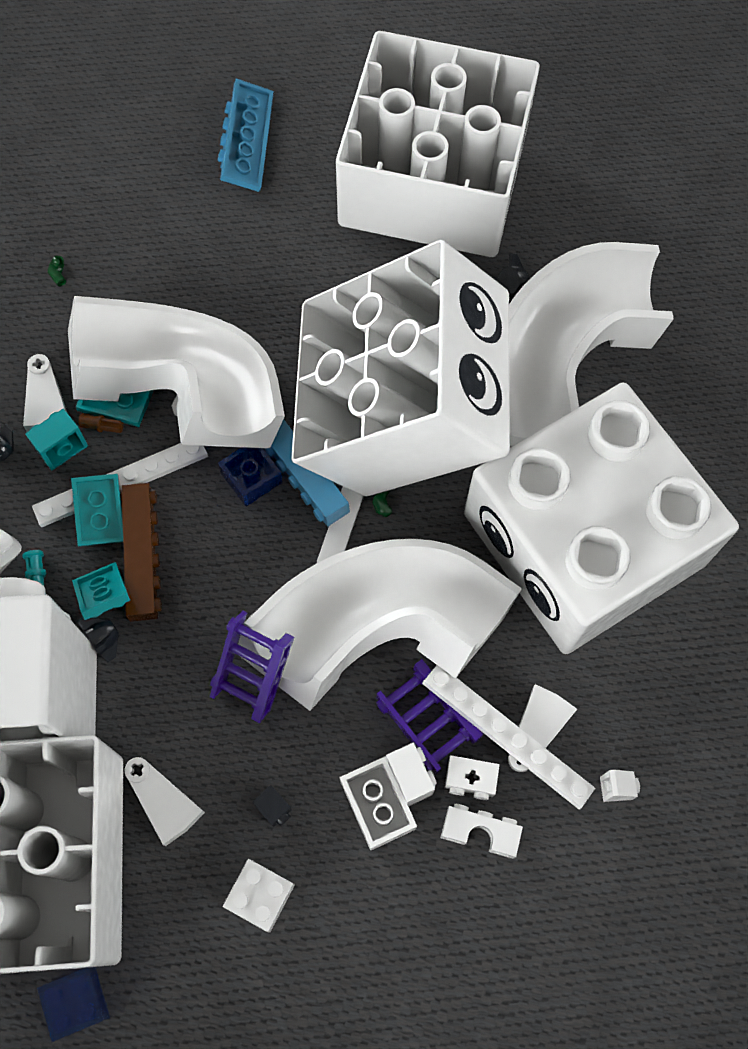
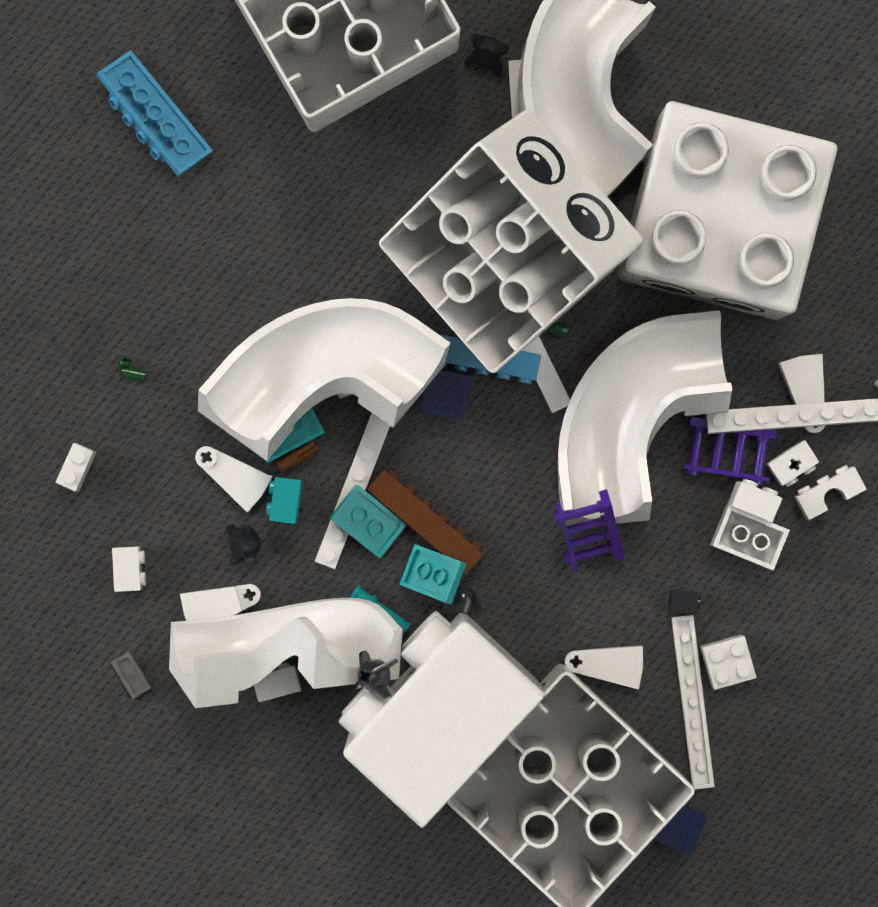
camera: 45 degrees left, 20 degrees up
(195, 907) = (692, 702): none -> white tile

